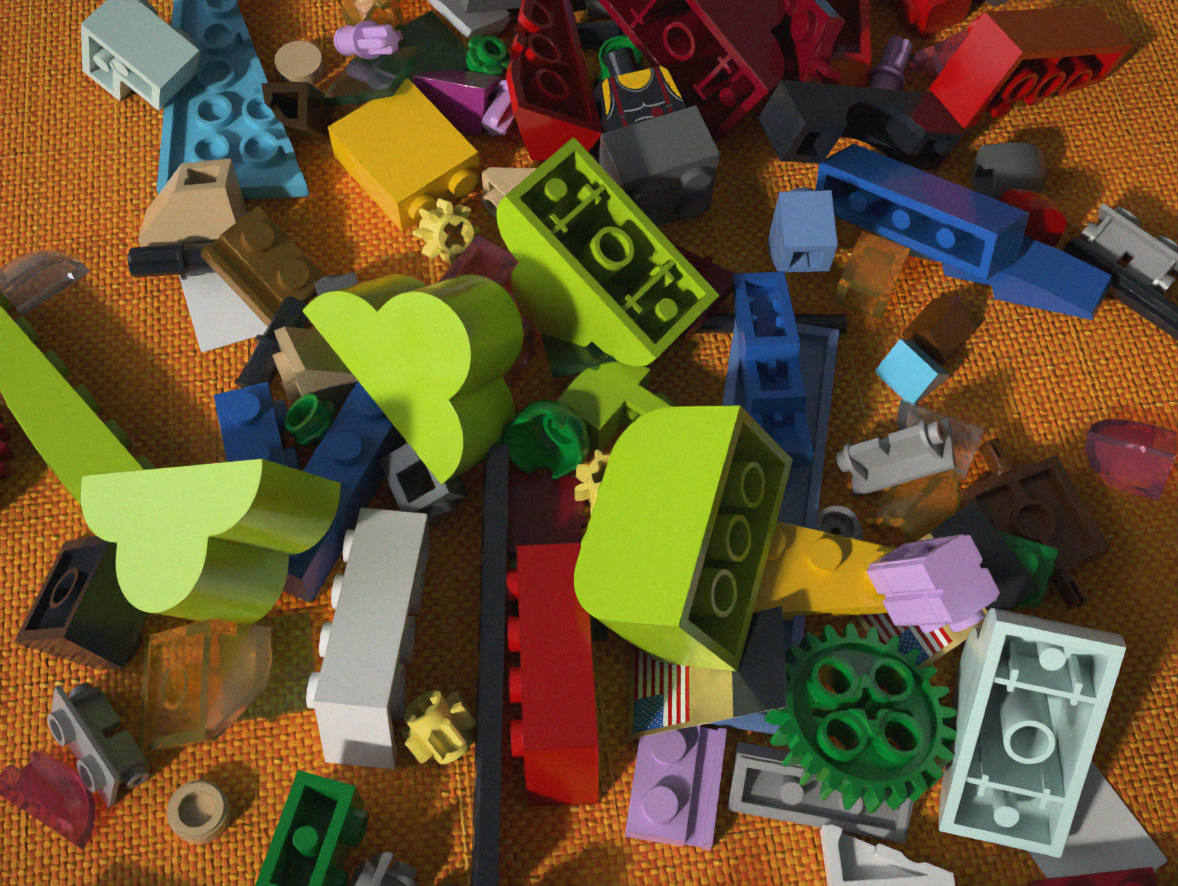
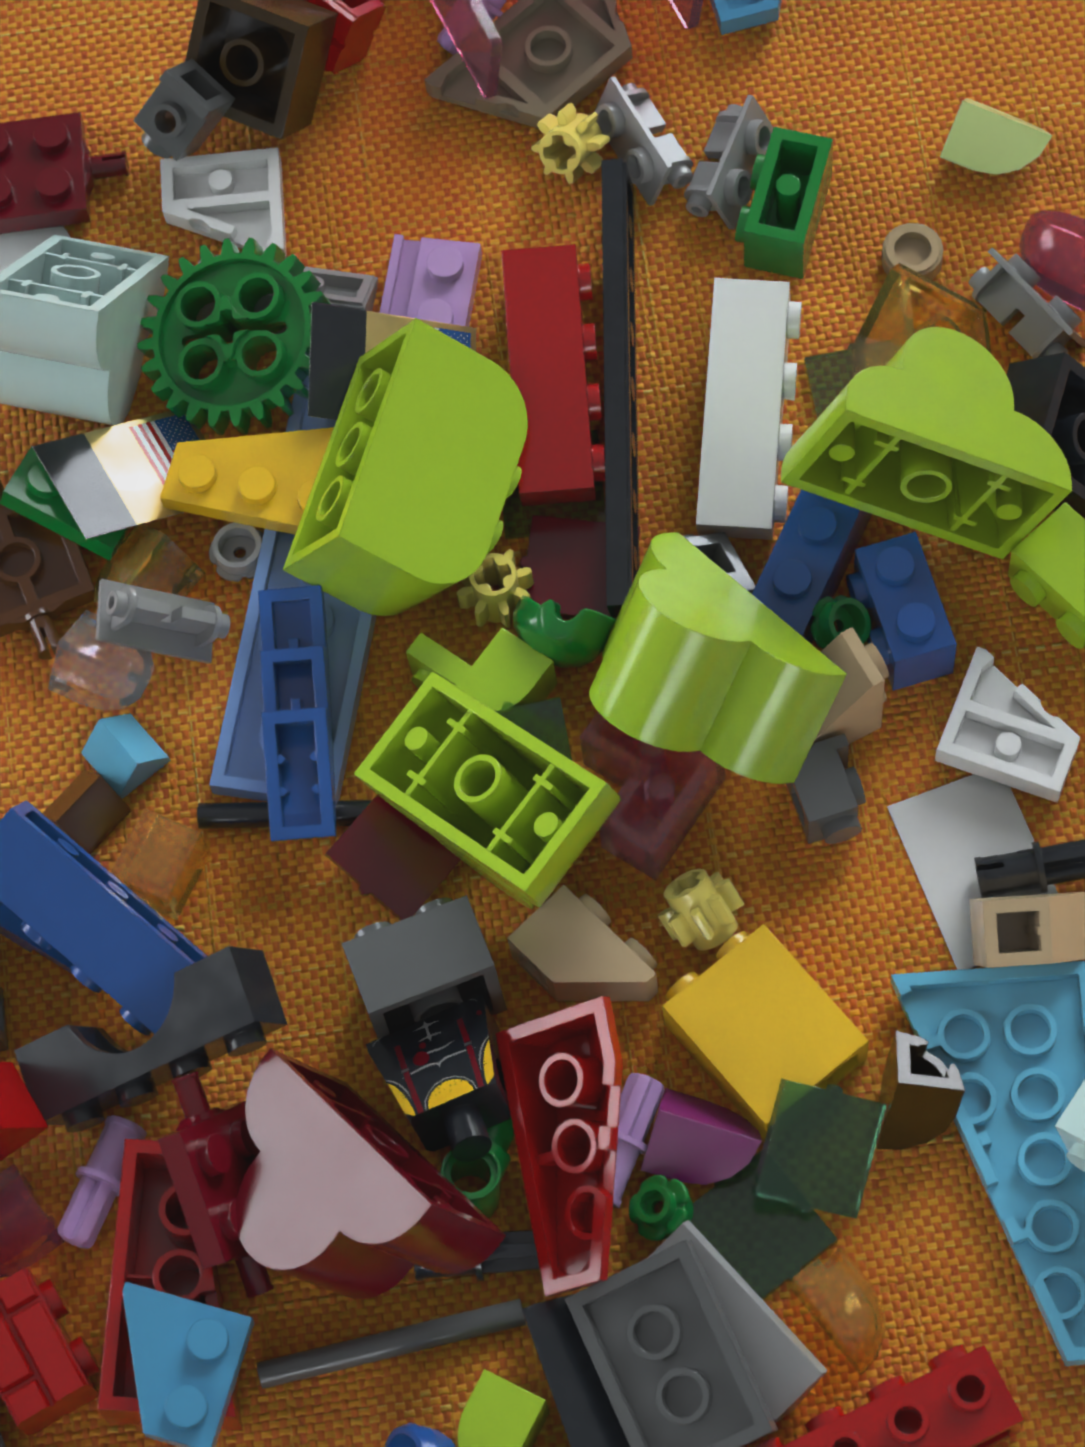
camera: 170 degrees left, 5 degrees up
(190, 359) = (1006, 733): none -> white wing
(261, 364) = (904, 744): black axle -> none
(262, 264) = (929, 850): pearl gold plate -> none
(299, 62) = (932, 1200): tan tile -> none
(367, 40) = (829, 1201): lavender axle -> none
(438, 727) = (671, 322): light yellow gear -> none
(803, 231) = (244, 880): medium blue slope -> none
(934, 583) = (150, 414): lavender brick -> none

